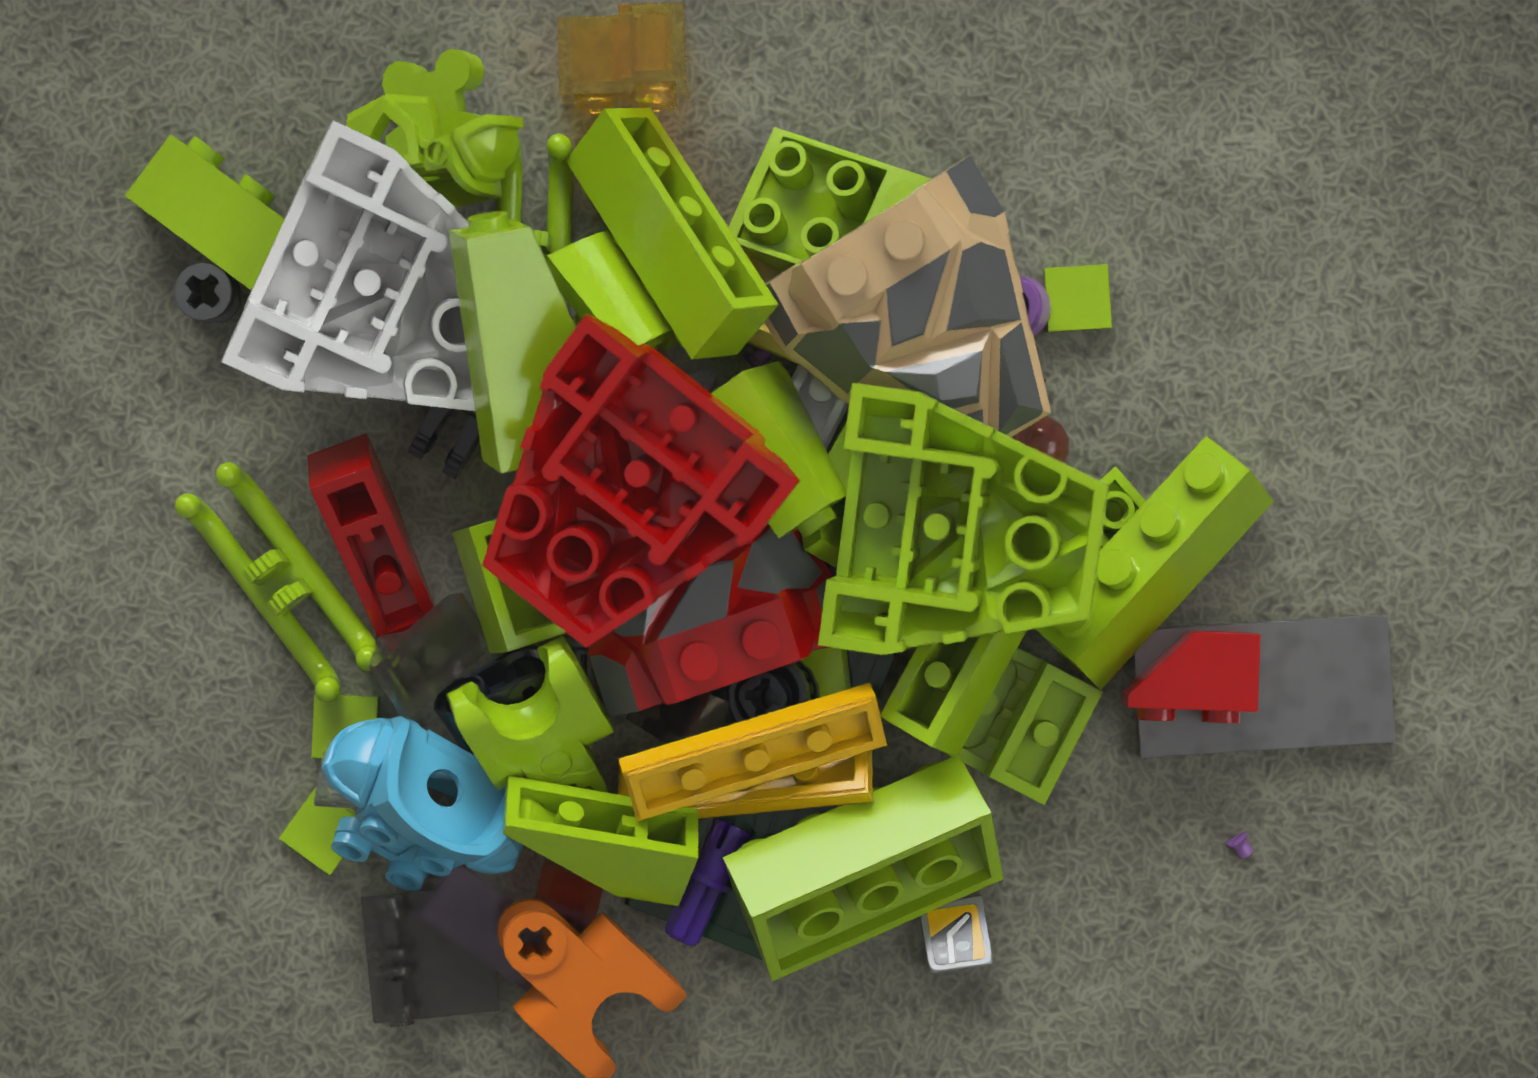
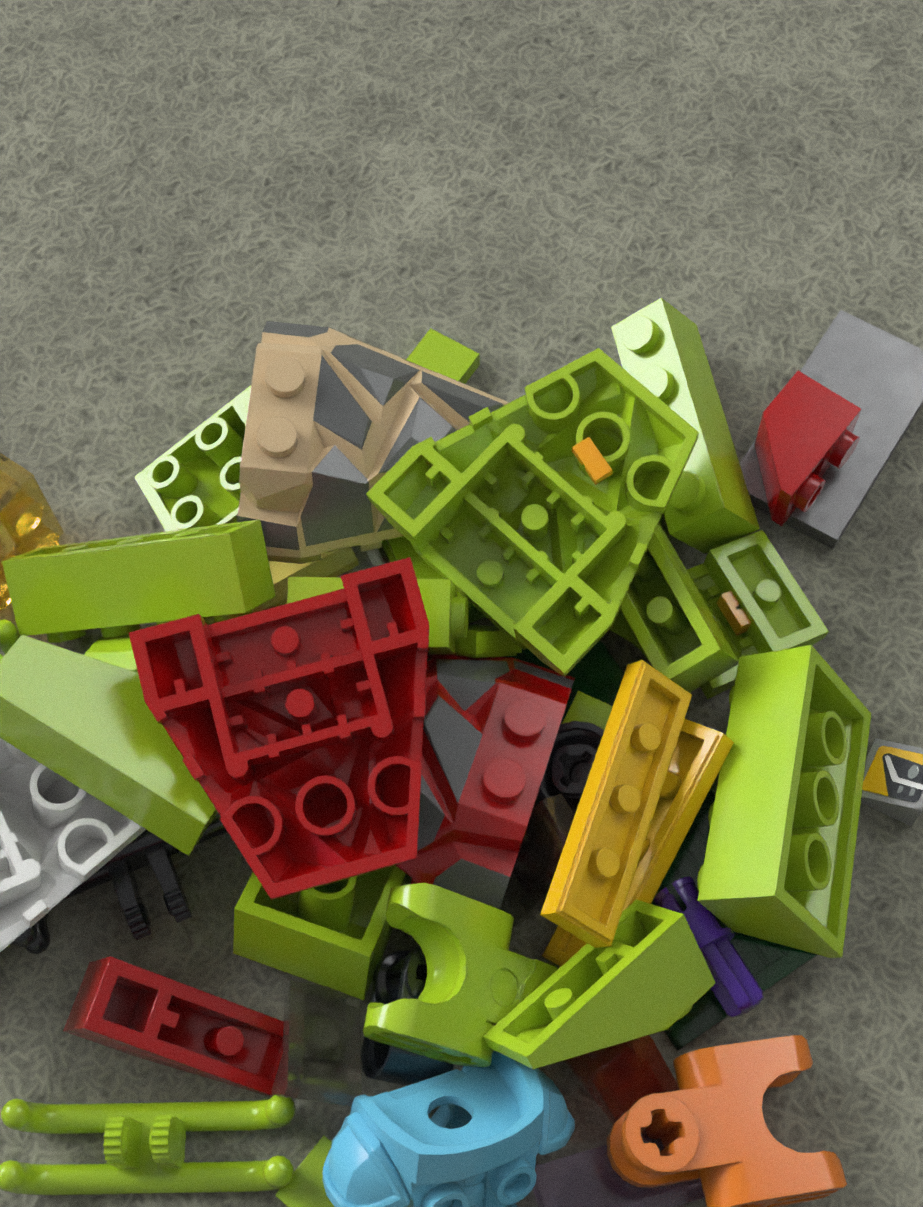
camera: 50 degrees left, 25 degrees down
(1002, 550) = (592, 459): none -> light orange piece
(1004, 724) = (736, 618): none -> light orange piece

